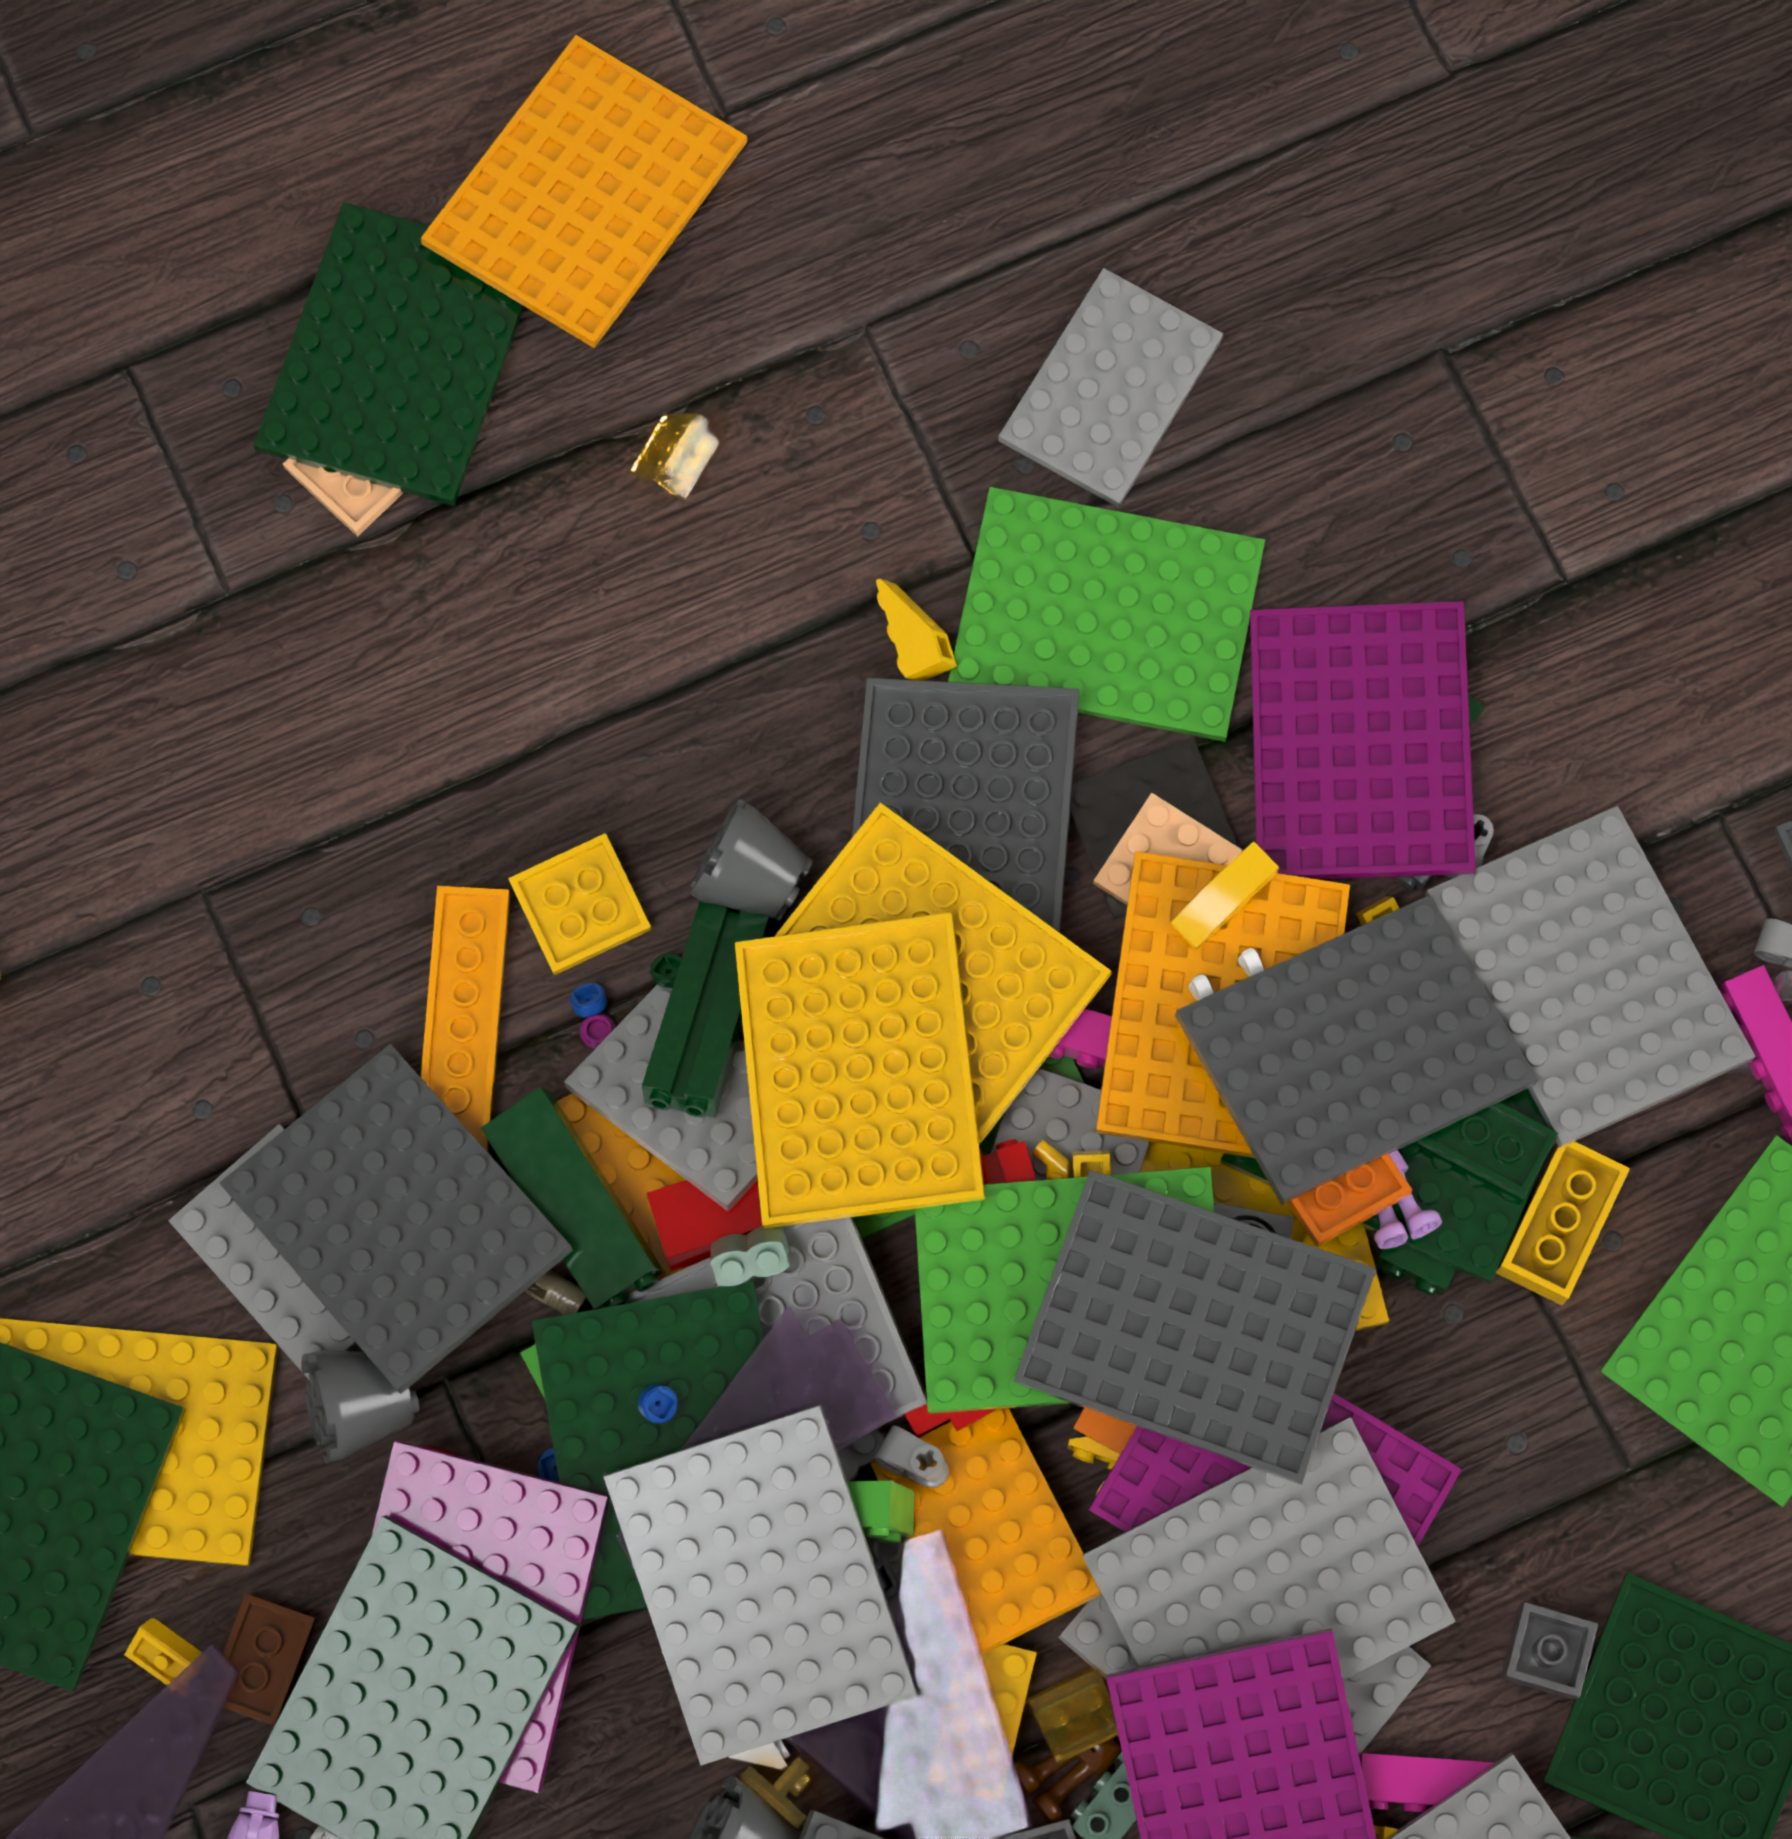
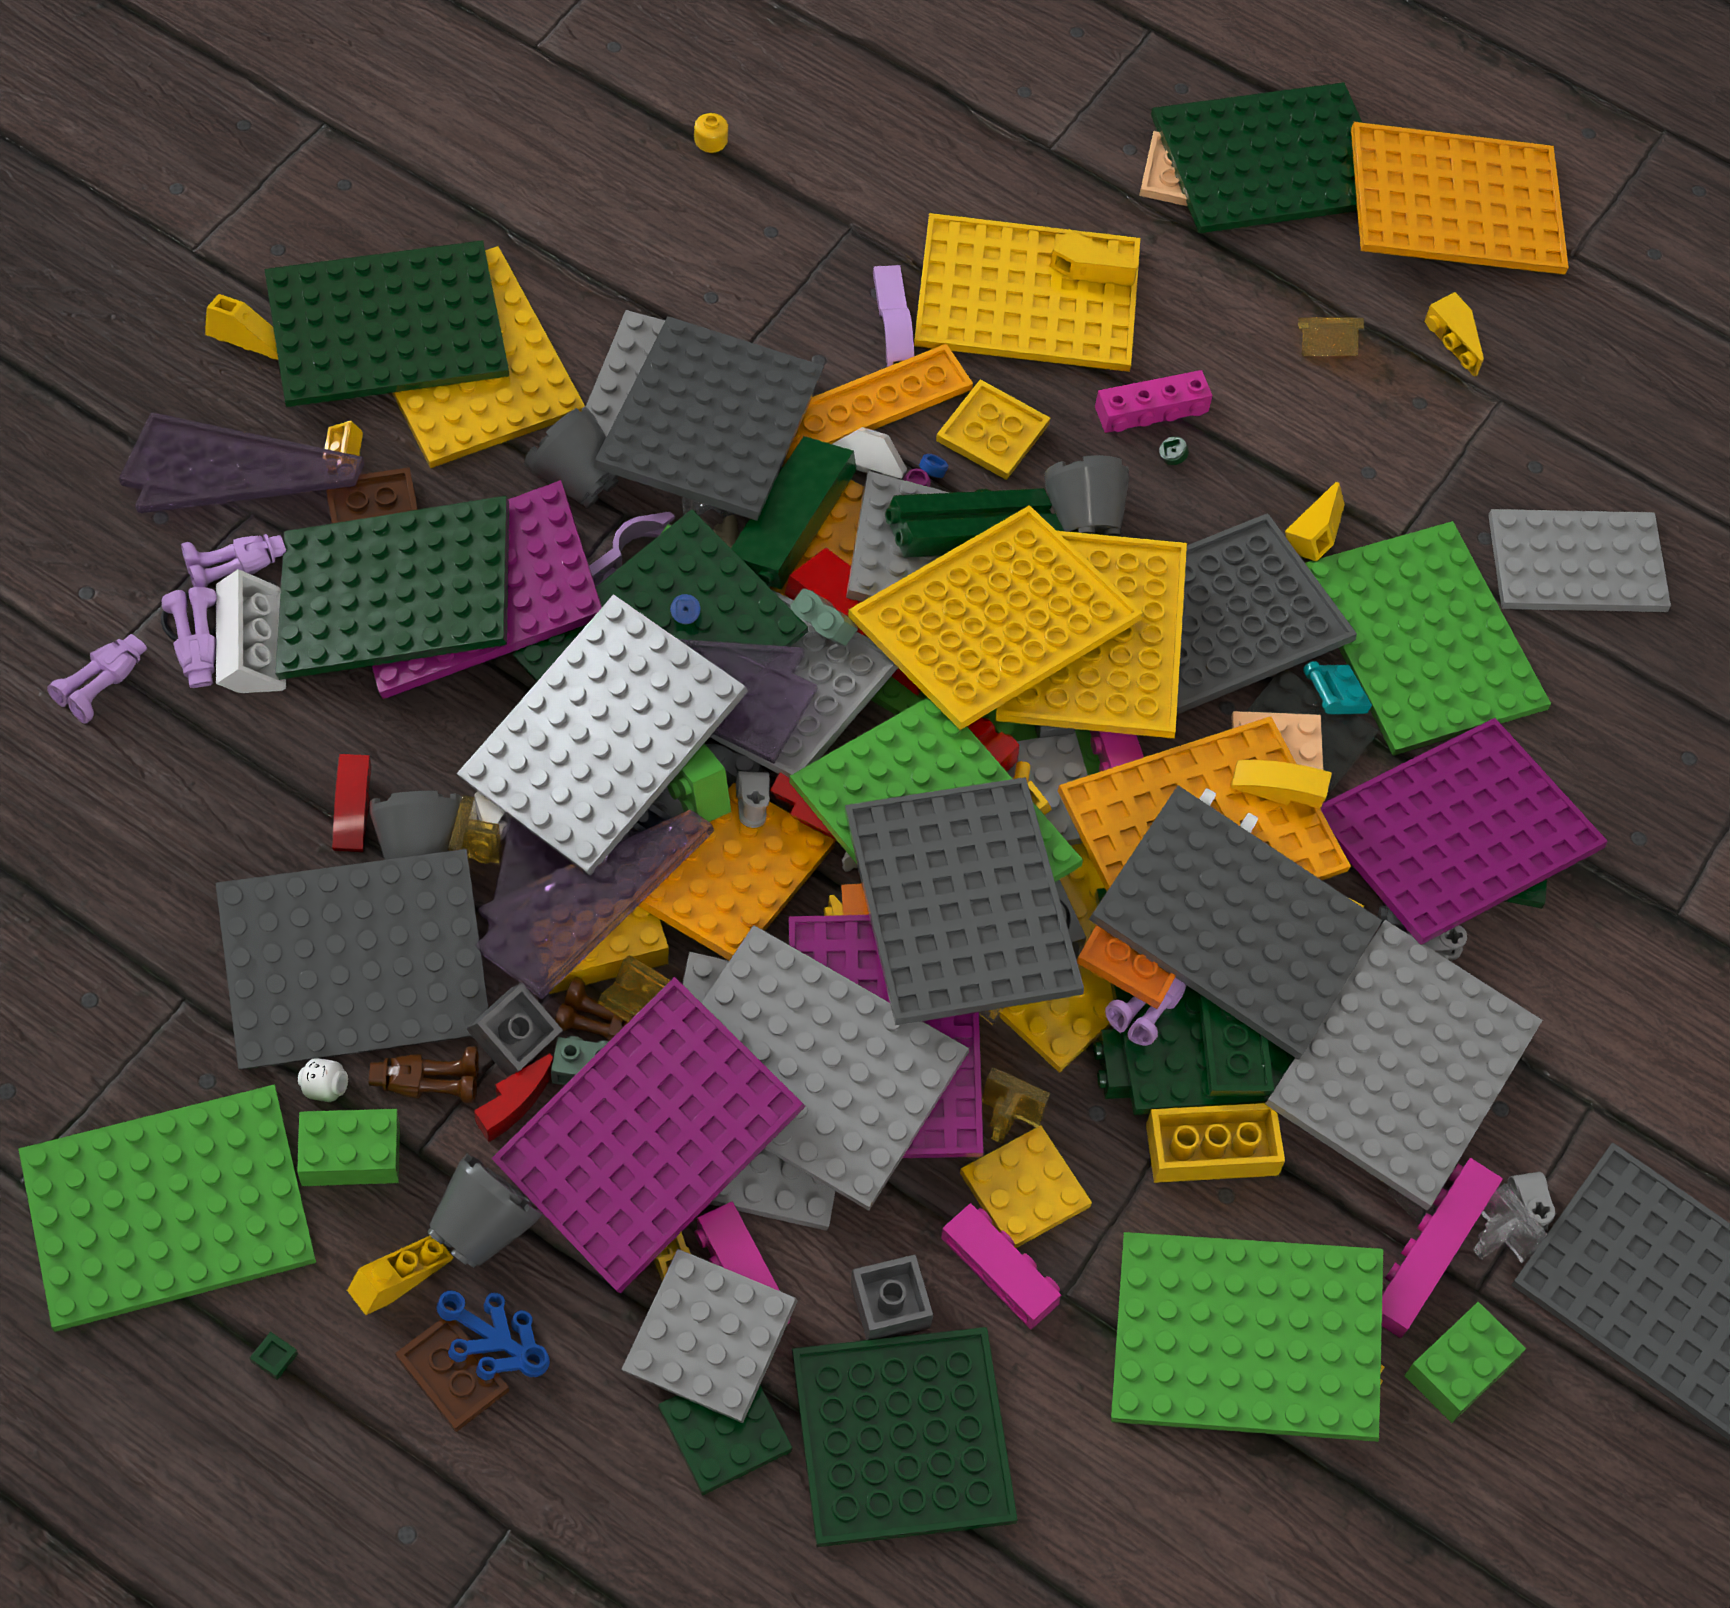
camera: 50 degrees right, 15 degrees down
(356, 917) = (894, 312): none -> lavender piece
(417, 748) = (996, 295): none -> yellow plate
(425, 662) = (1089, 261): none -> yellow slope
(489, 1354) = (640, 526): none -> lavender piece
(533, 1062) = (874, 452): none -> white slope
(650, 706) = (1153, 401): none -> dark pink brick
(724, 724) = (1174, 450): none -> dark green tile
(750, 311) = (1455, 326): none -> yellow slope
(1126, 742) = (1338, 688): none -> teal plate
(1409, 1396) = (1013, 1100): none -> clear yellow bracket
(1498, 1437) = (1026, 1187): none -> yellow plate
(1573, 1518) = (1001, 1265): none -> dark pink brick

